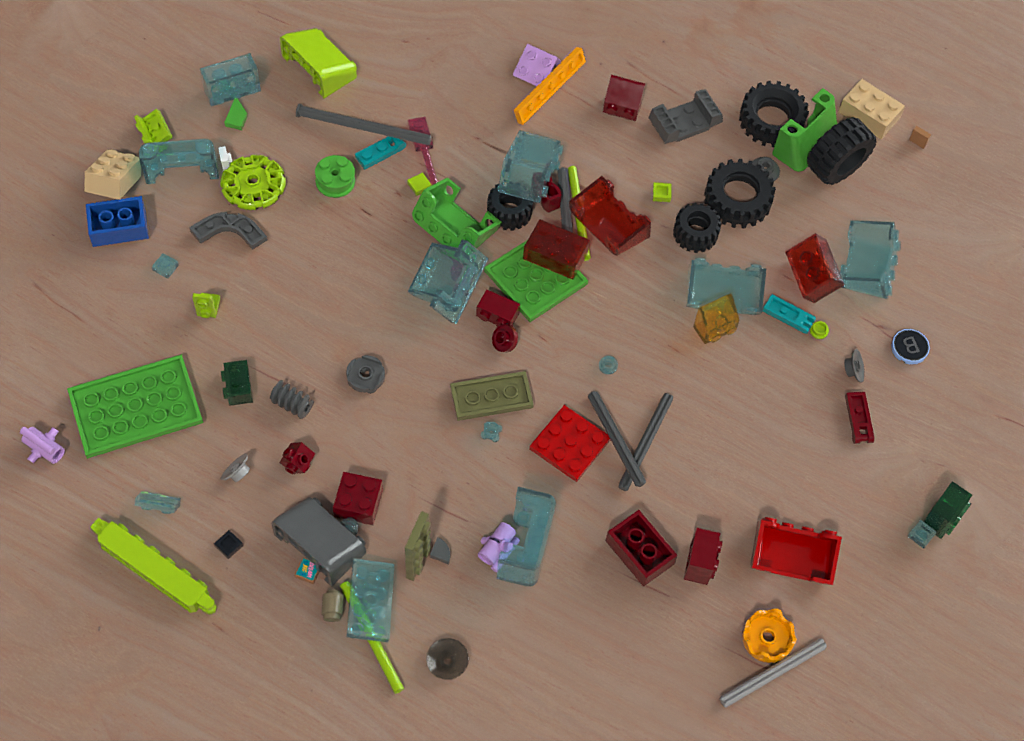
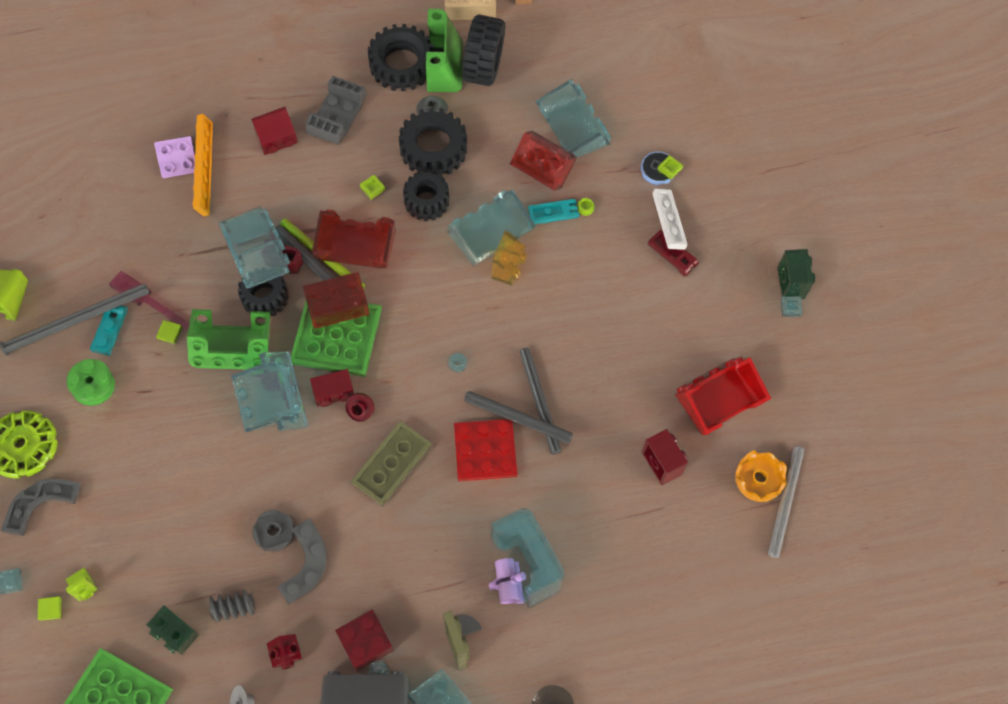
camera: 40 degrees left, 5 degrees up
(173, 303) = (49, 608): none -> lime tile
(372, 419) = (314, 562): none -> dark grey plate
(491, 426) = (411, 490): clear light blue plate -> none
(641, 548) = (615, 489): dark red brick -> none
(854, 366) = (636, 215): dark grey piece -> none
(879, 389) = (669, 219): none -> white plate
(919, 352) = (670, 167): none -> lime tile

